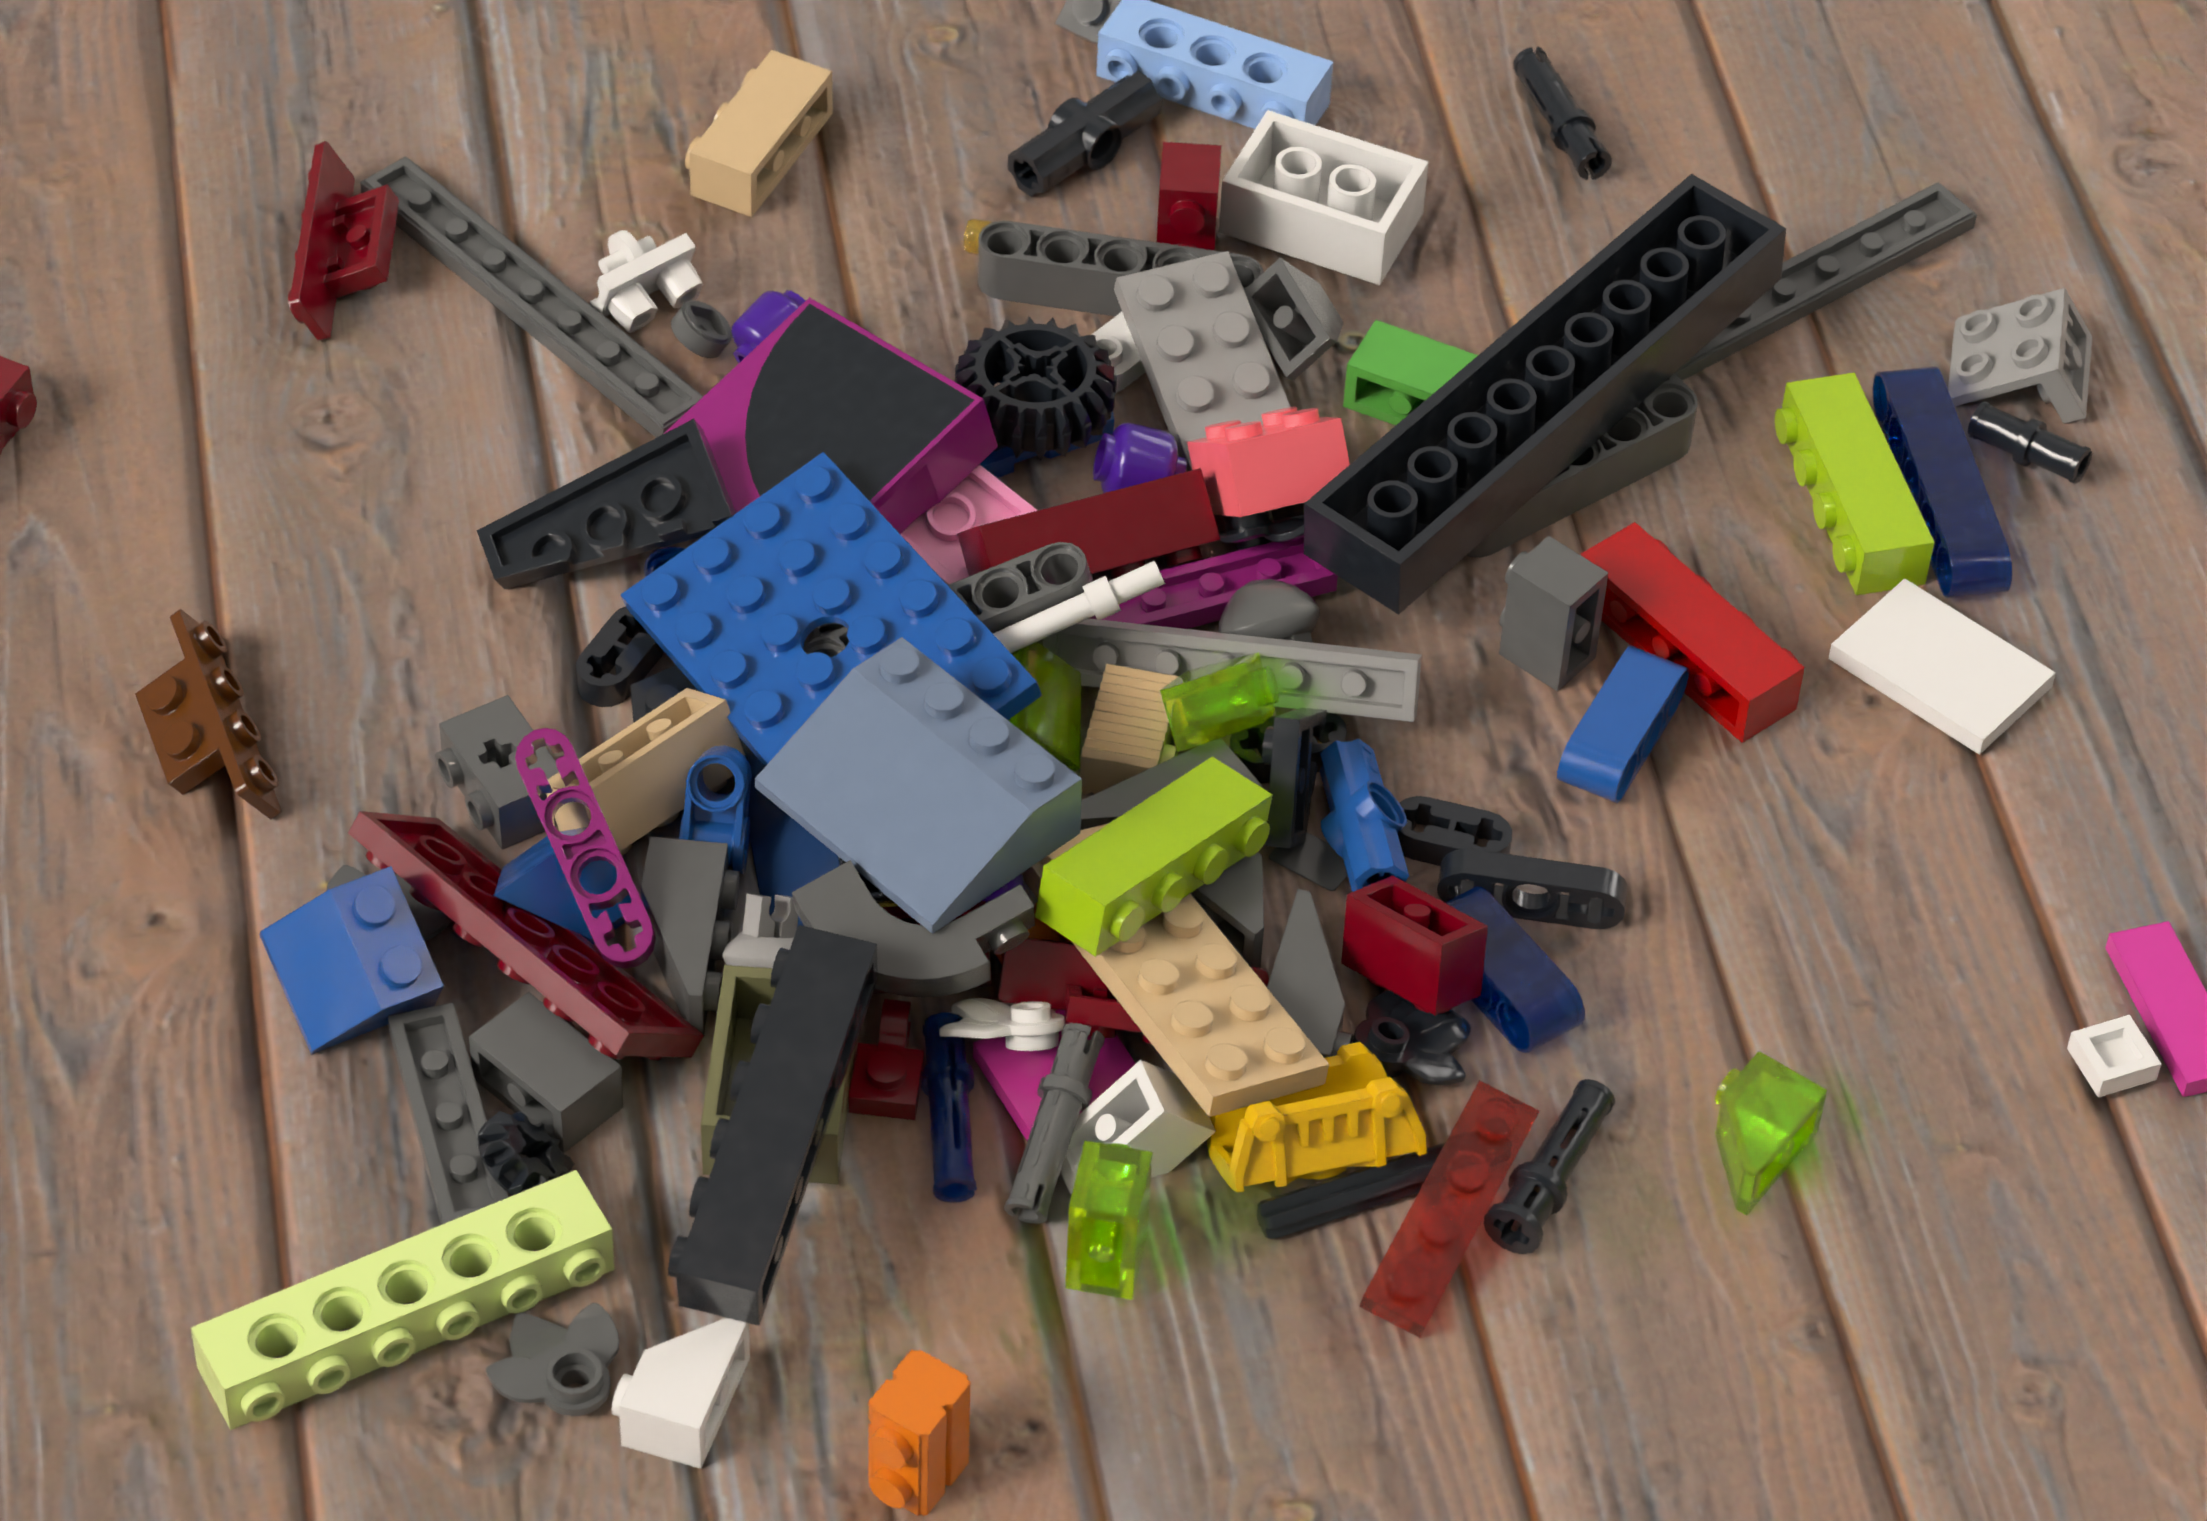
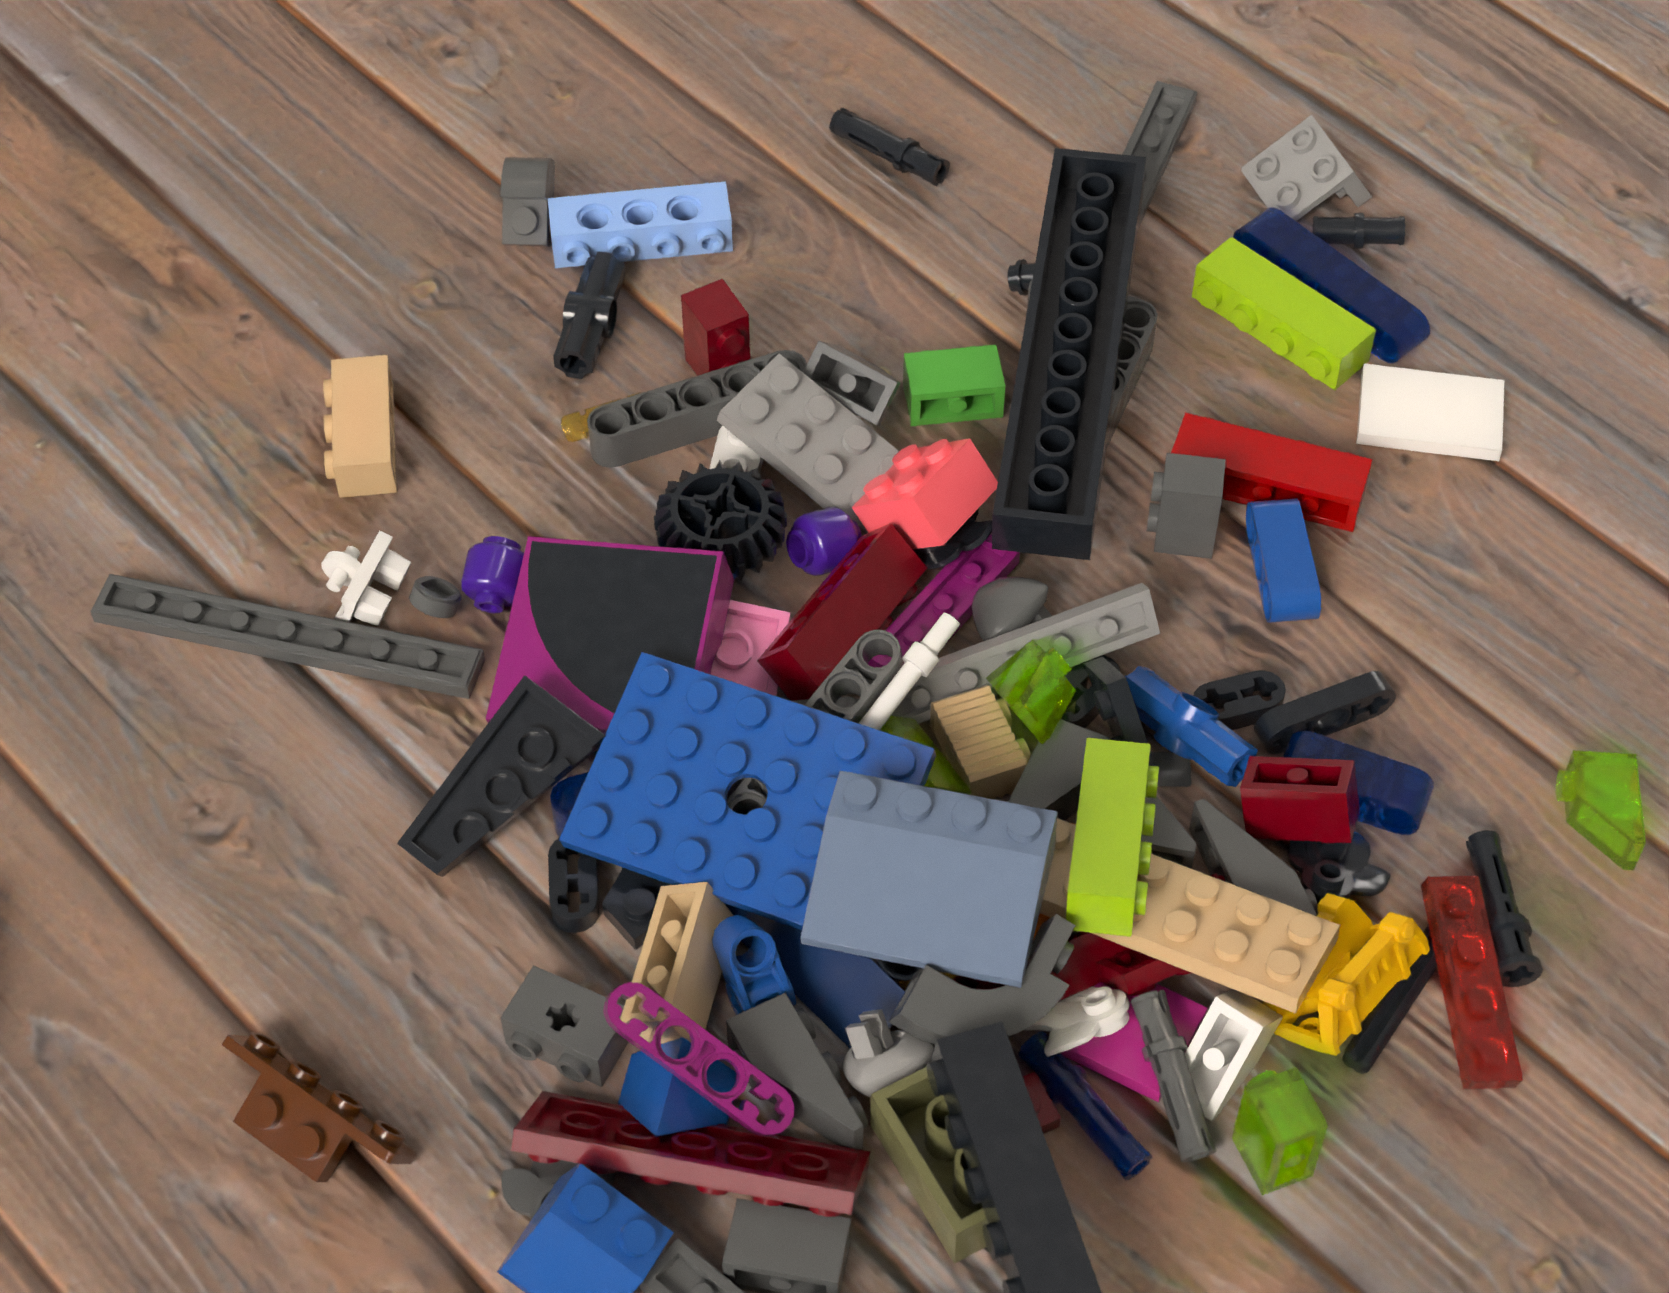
camera: 30 degrees left, 5 degrees up
(341, 241) = (118, 664): dark red bracket -> none
(1323, 197) = (798, 279): white brick -> none

